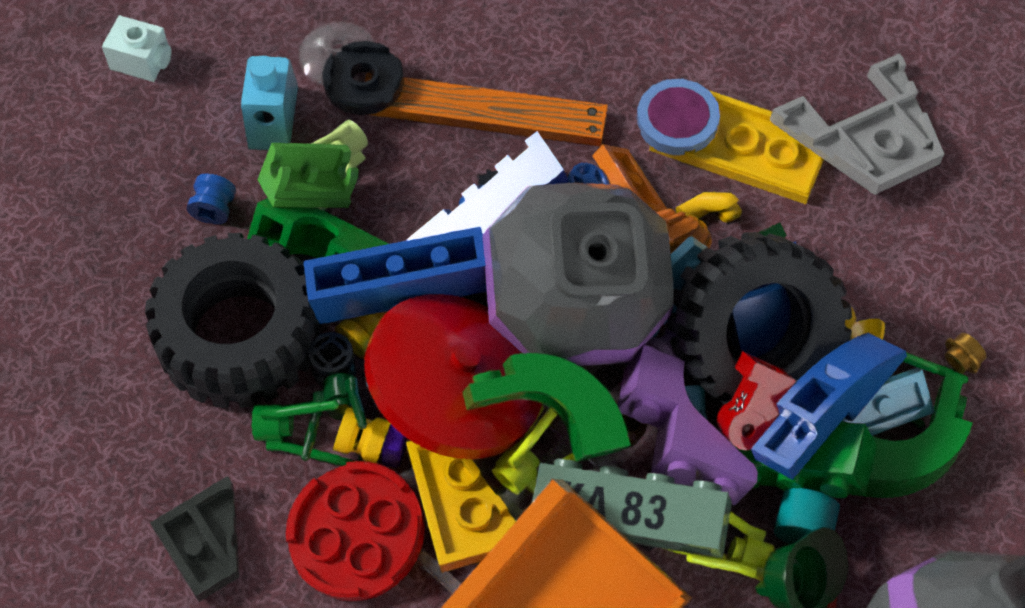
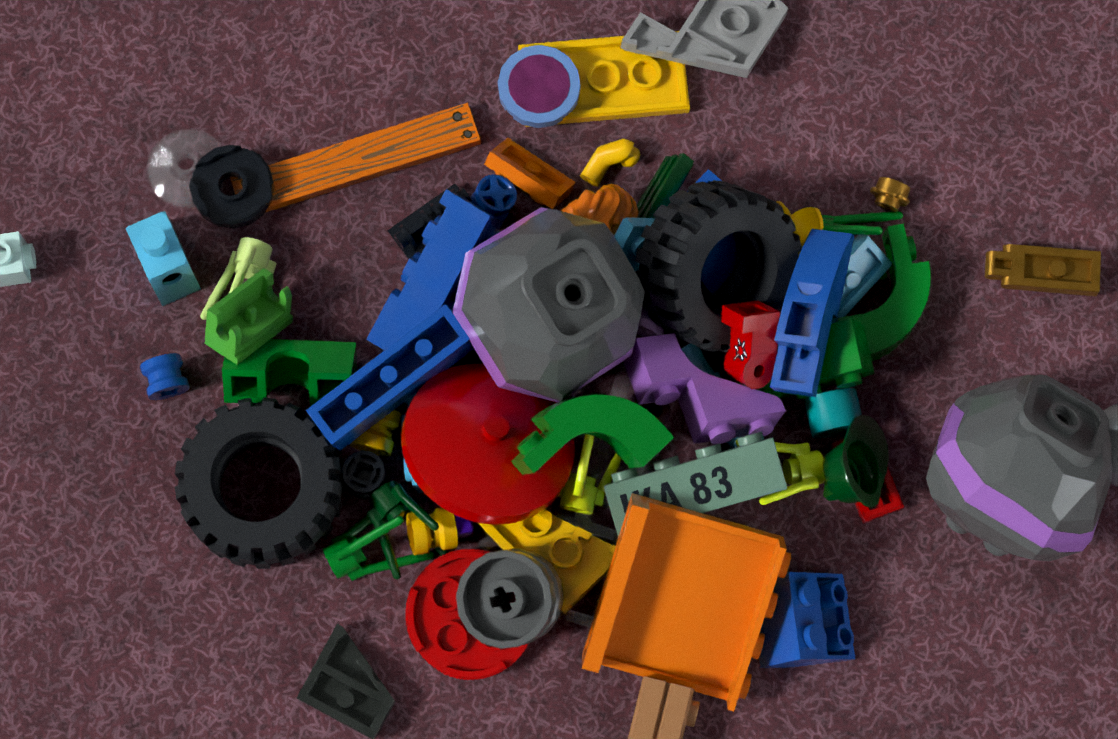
camera: 30 degrees left, 15 degrees up
(393, 521) = (484, 602): none -> dark grey wheel

